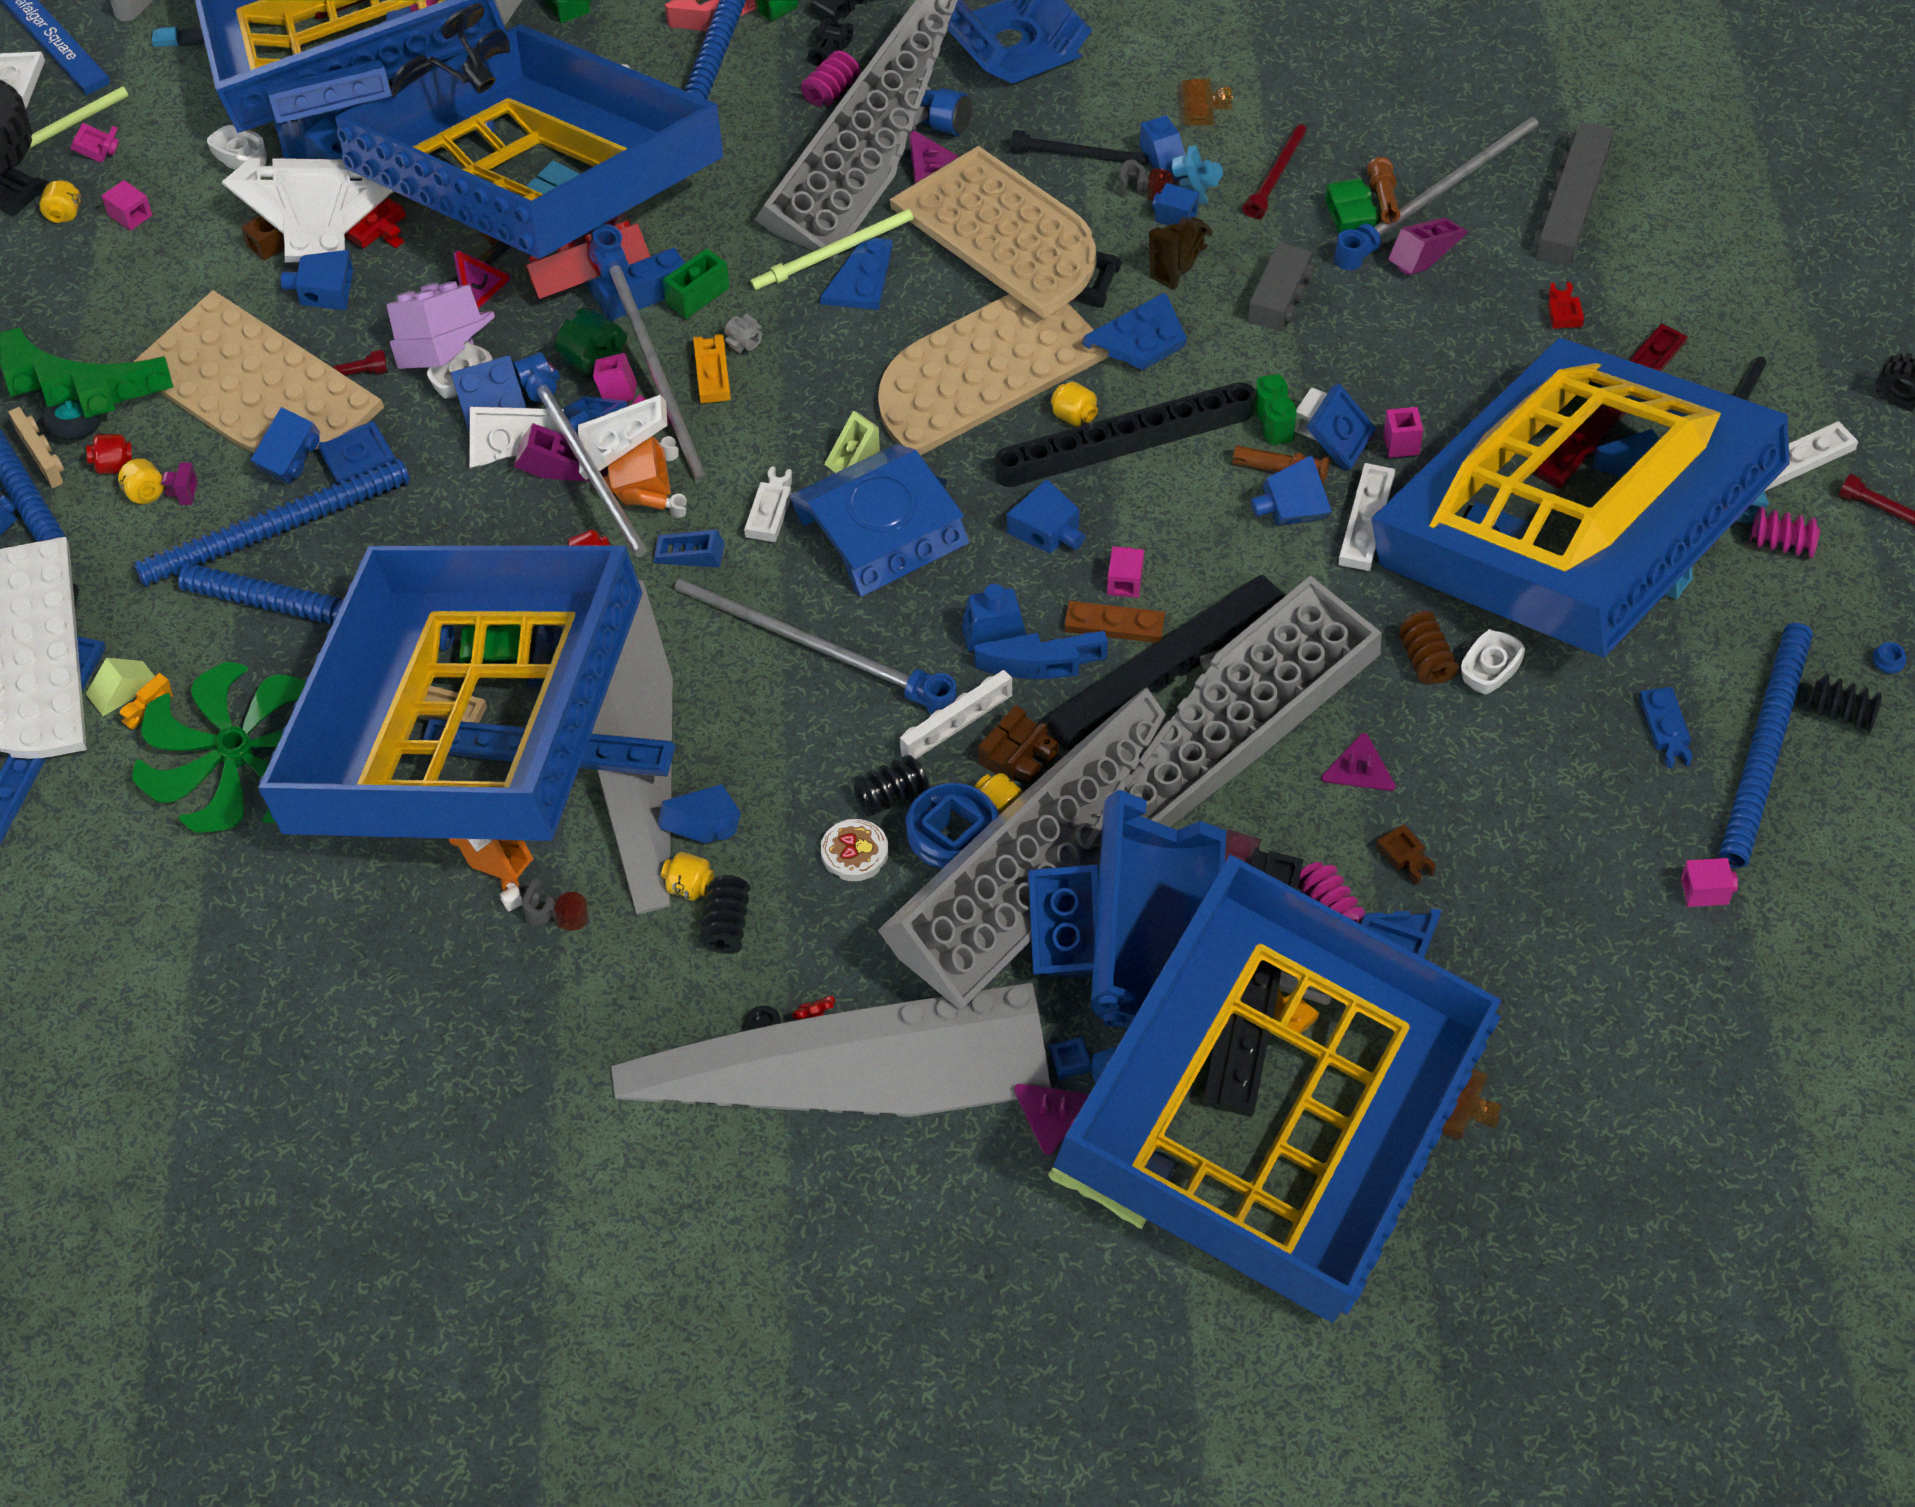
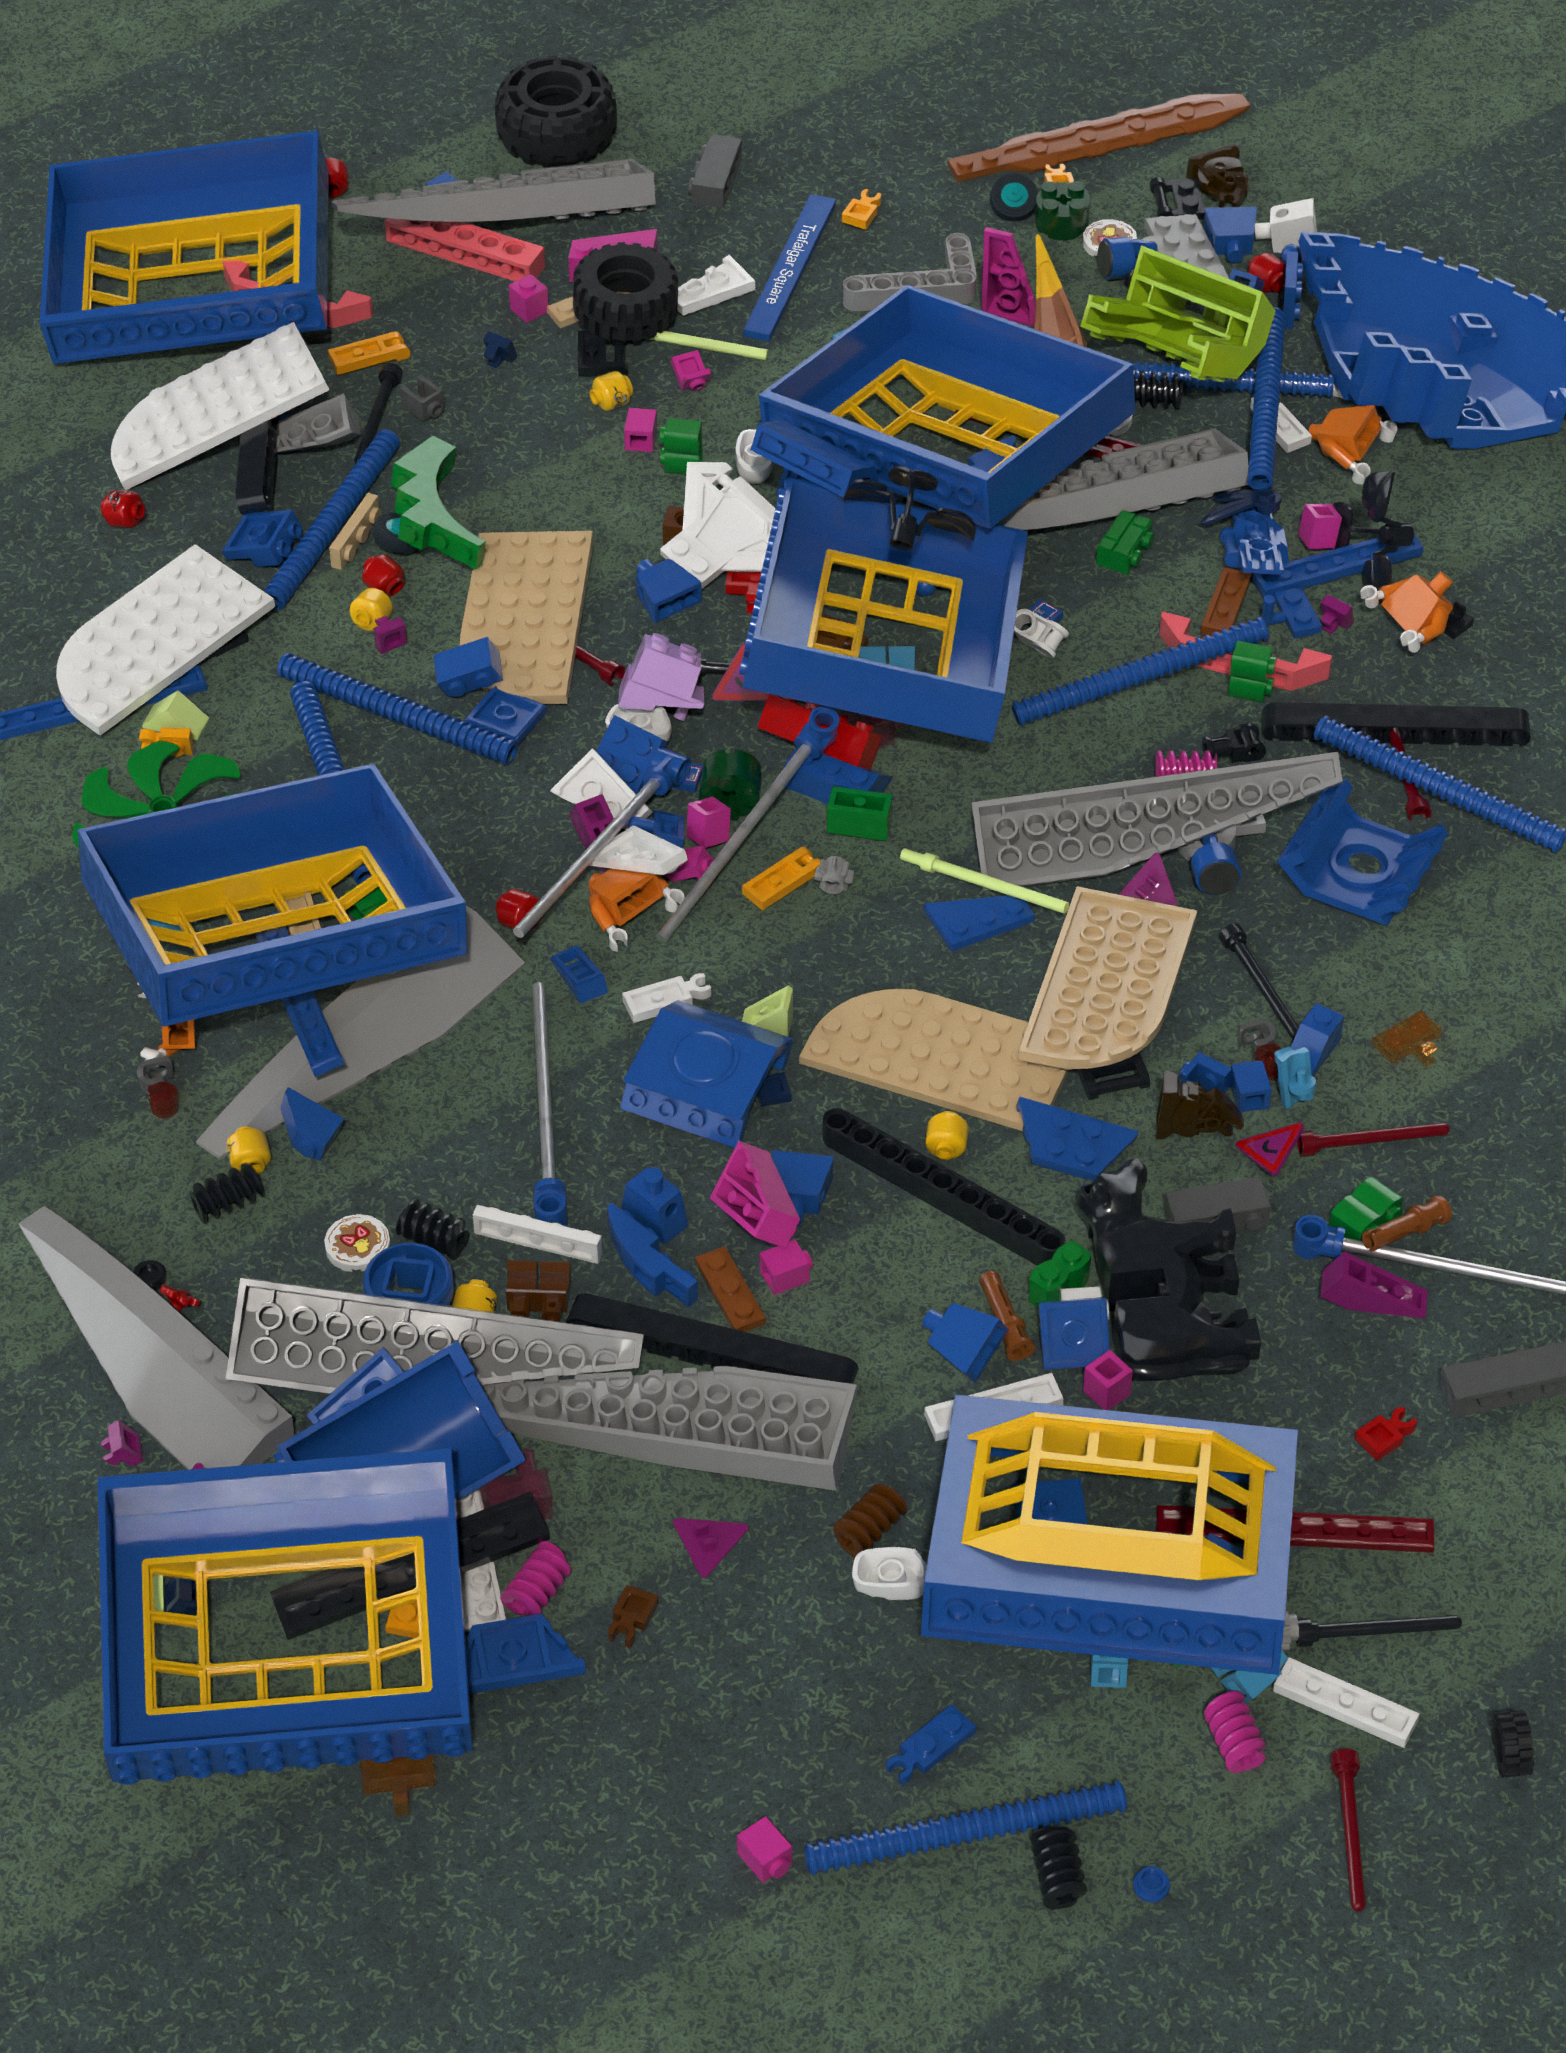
camera: 55 degrees right, 5 degrees down
(184, 185) = (681, 444): none -> green brick
(949, 1134) = (123, 1444): none -> magenta tile
(1057, 545) = (756, 1195): none -> dark pink wedge
(1141, 222) = (1207, 1072): none -> blue bracket
(1246, 226) = (1272, 1147): none -> piece
(1319, 342) = (1159, 1280): none -> black animal

